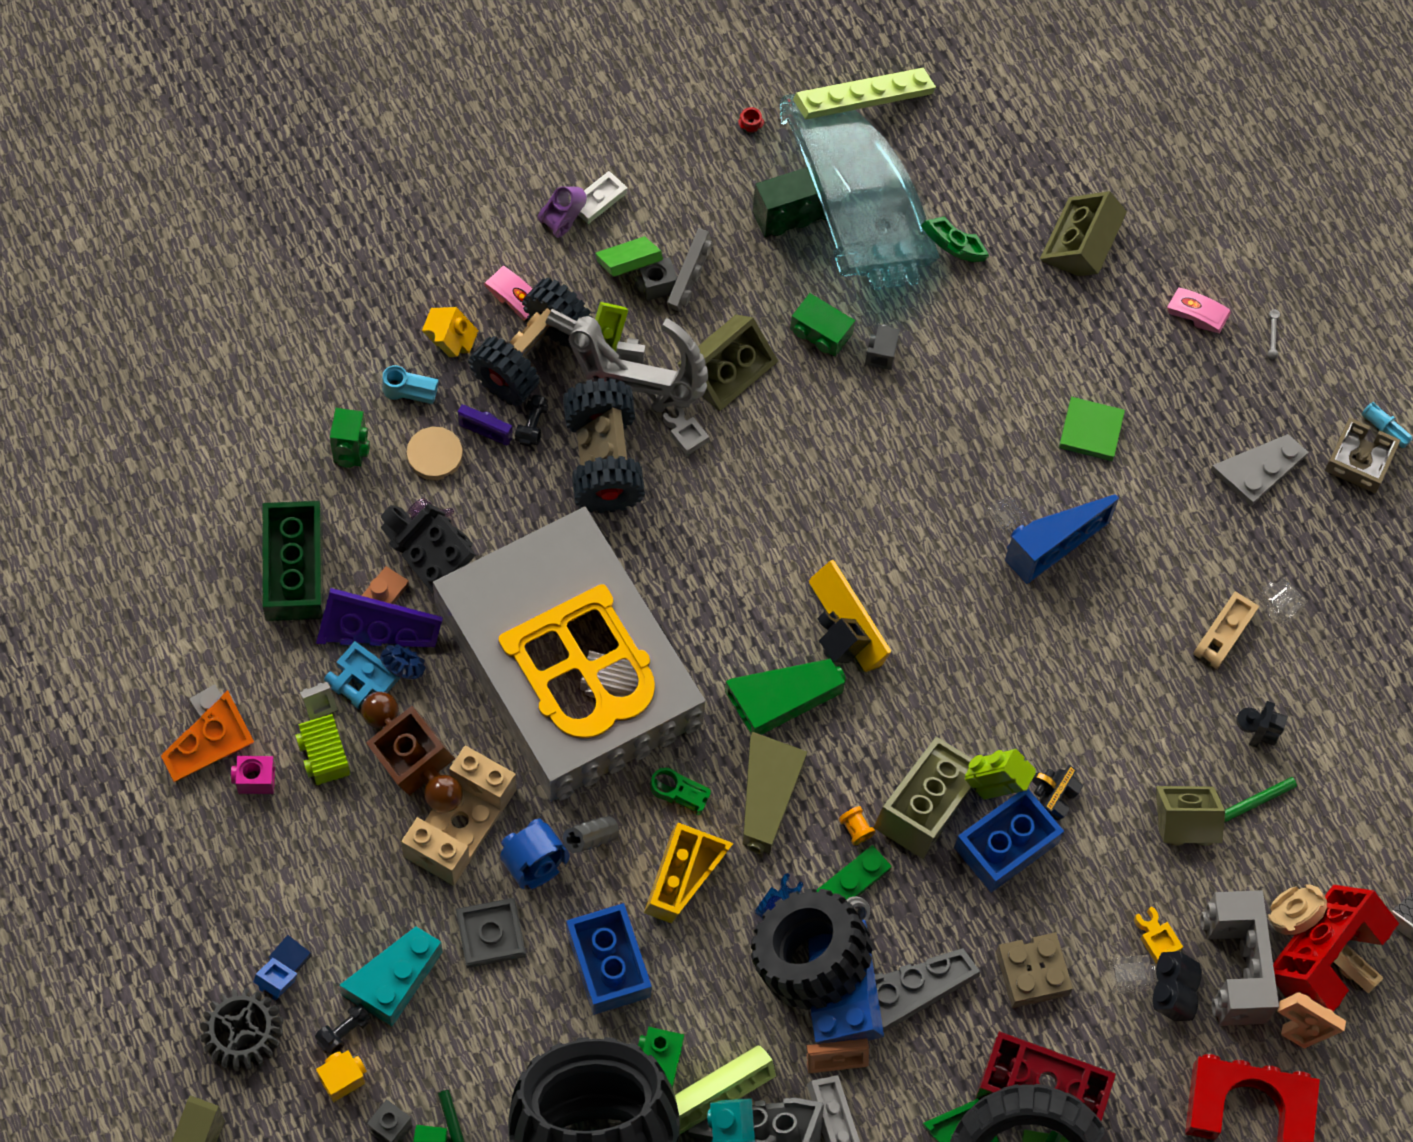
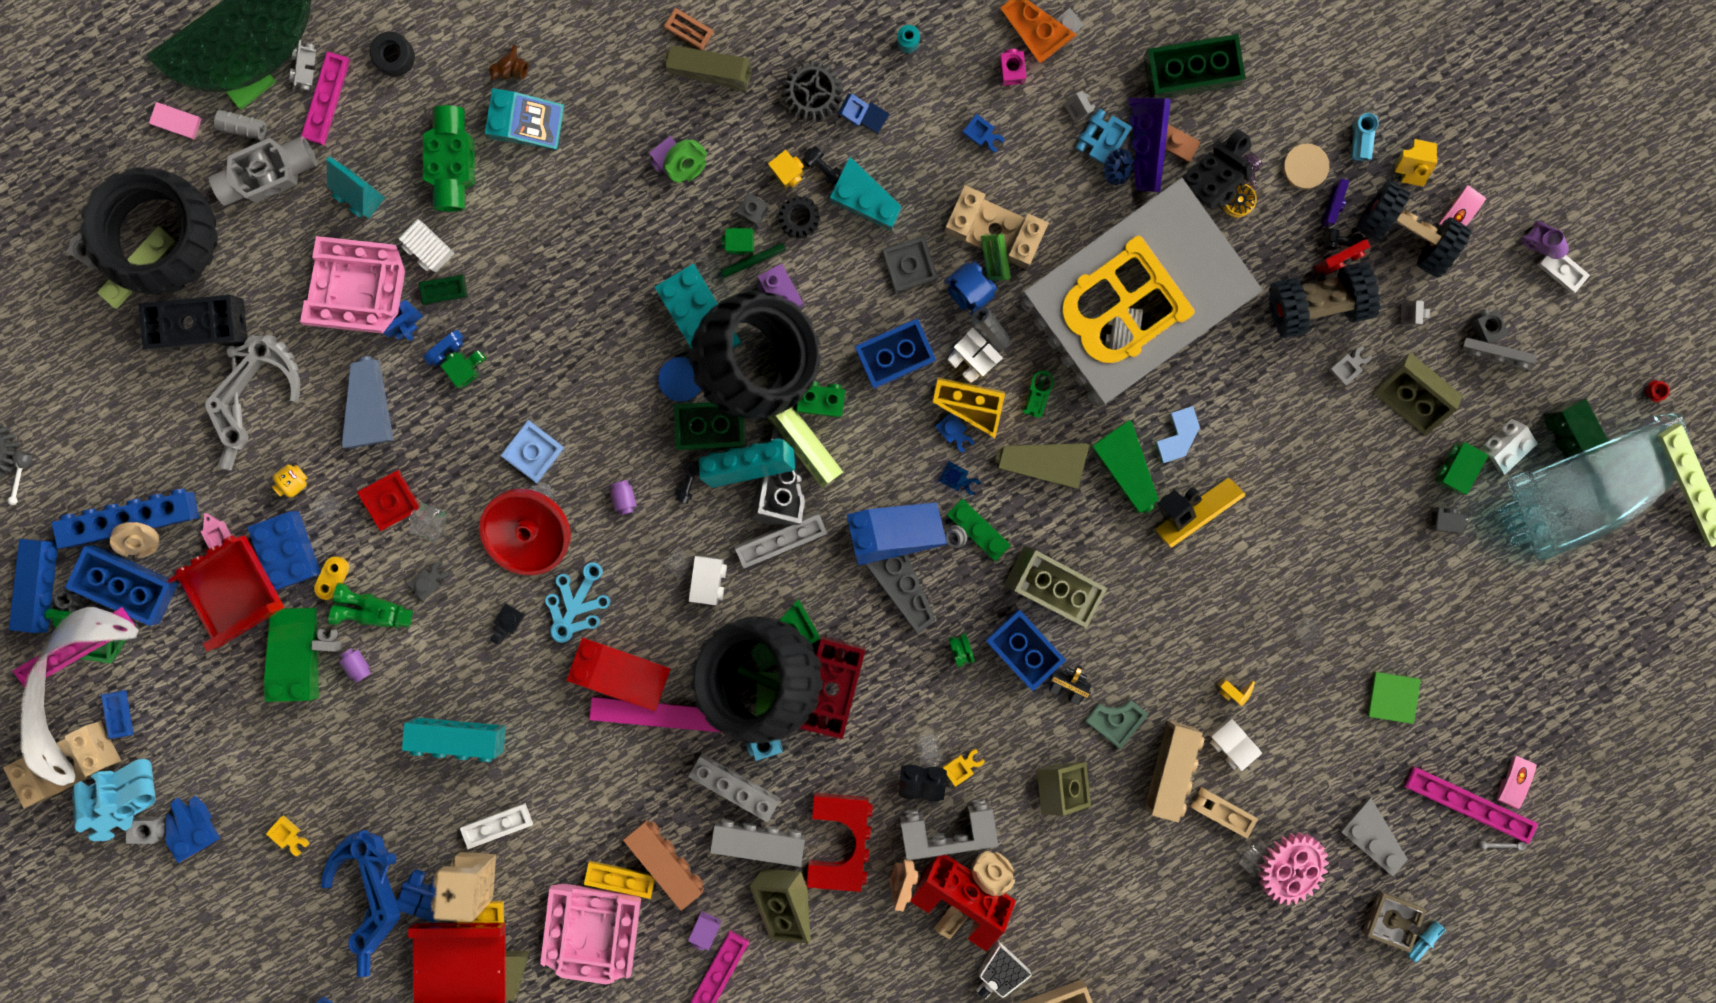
camera: 90 degrees right, 25 degrees up
(194, 897) = (908, 45): none -> teal brick
(324, 750) = (1039, 116): lime brick -> none
(331, 823) = (981, 131): none -> blue plate
(349, 438) = (1307, 94): green brick -> none
(397, 1051) = (799, 203): none -> black tyre
(411, 751) = (1042, 183): reddish brown brick -> none
(470, 526) = (1241, 203): none -> yellow wheel
(493, 1103) = (778, 282): none -> medium lavender brick
(503, 809) = (998, 257): none -> bright green tile
(557, 425) = (1336, 261): none -> red plate
(601, 361) = (1394, 295): light grey piece -> none
(611, 321) = (1432, 290): lime slope -> none
(618, 860) = (967, 348): none -> white hips
(629, 256) = (1507, 301): bright green tile -> none
(714, 902) = (951, 429): none -> blue plate
(743, 622) = (1186, 428): none -> light blue tile
(799, 274) = (1509, 445): none -> white bracket
(833, 971) = (926, 481): black tyre -> none
(837, 1055) = (841, 532): nougat tile -> none
(857, 825) = (1025, 532): light orange bush -> none
(954, 241) = (1556, 573): green tile -> none
(999, 773) = (1075, 639): lime brick -> none
(1005, 918) = (961, 650): none -> green wheel
(1035, 983) = (914, 676): dark tan piece -> none
(1054, 536) = (1281, 663): blue slope -> none
(1076, 605) = (1229, 692): none -> yellow plate
(1084, 233) = (1579, 682): olive slope -> none
(1108, 743) = (1117, 723): none -> sand green tile
(1141, 608) = (1235, 744): none -> white brick
(1172, 678) = (1173, 771): none -> tan brick
(1223, 362) = (1470, 805): none -> dark pink tile
(1259, 798) = (1083, 840): green bar -> none
(1265, 725) = (1143, 842): black hips -> none
(1297, 557) = (1293, 868): none -> bright pink gear

